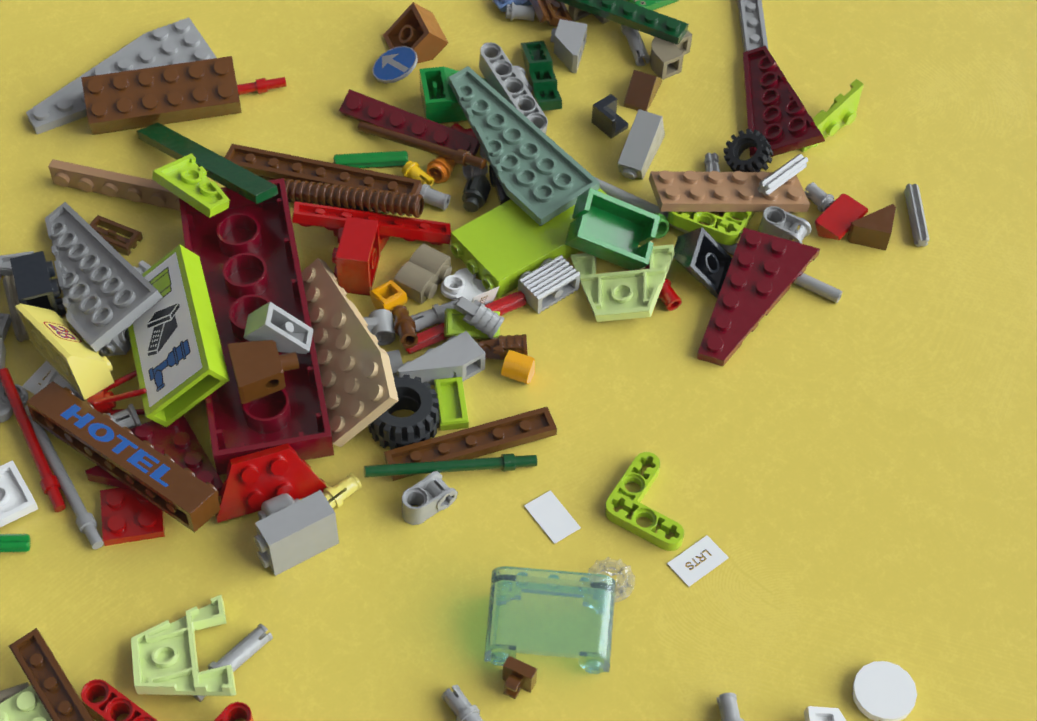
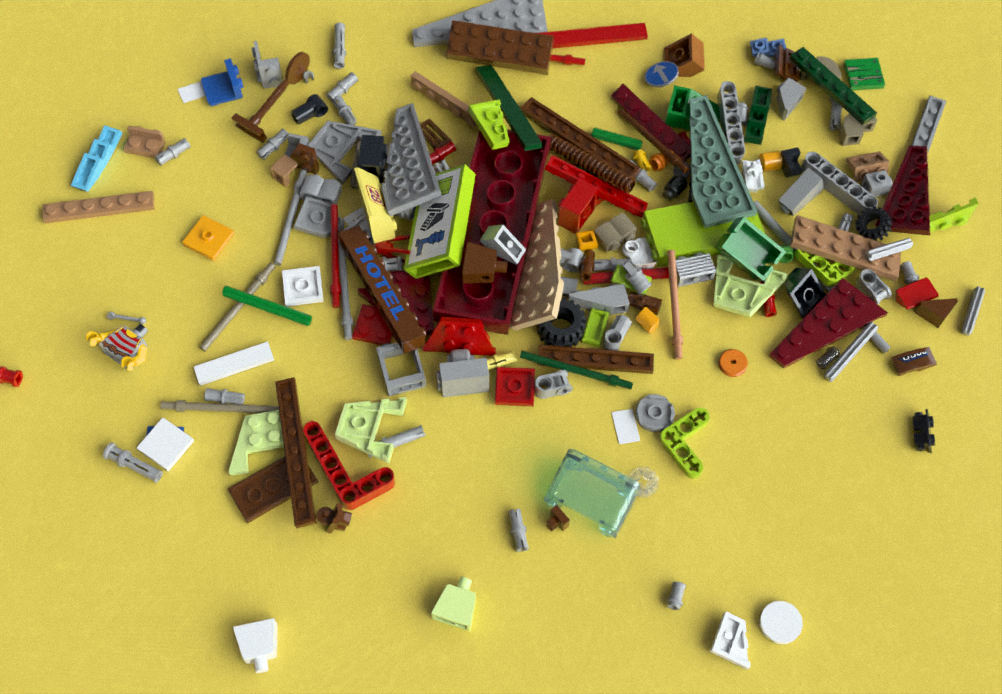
camera: 25 degrees right, 10 degrees up
(137, 249) = (439, 154): none -> red pin
(210, 576) = (405, 383): none -> light grey window
(292, 44) = (598, 35): none -> red tile
(374, 521) = (515, 386): none -> red plate
(484, 398) = (616, 333): none -> light grey piece
(568, 377) = (677, 338): none -> nougat bar
(570, 141) = (753, 175): none -> white hips
(583, 123) = (771, 160): none -> light orange brick
(583, 484) = (655, 413): none -> light grey tile
(641, 90) = (826, 146): reddish brown slope -> none
(655, 373) = (735, 356): none -> orange piece
(684, 122) = (839, 183): none -> light grey beam
(698, 560) = (704, 491): white sticker -> none
(706, 91) = (867, 164): none -> medium nougat bracket
(727, 108) = (877, 183): none -> light grey brick
(774, 326) = (830, 355): none -> clear smoke pin
(797, 314) = (851, 351): none -> light grey axle
(878, 297) = (914, 360): none -> reddish brown slope
(941, 385) = (924, 424): none -> black hinge

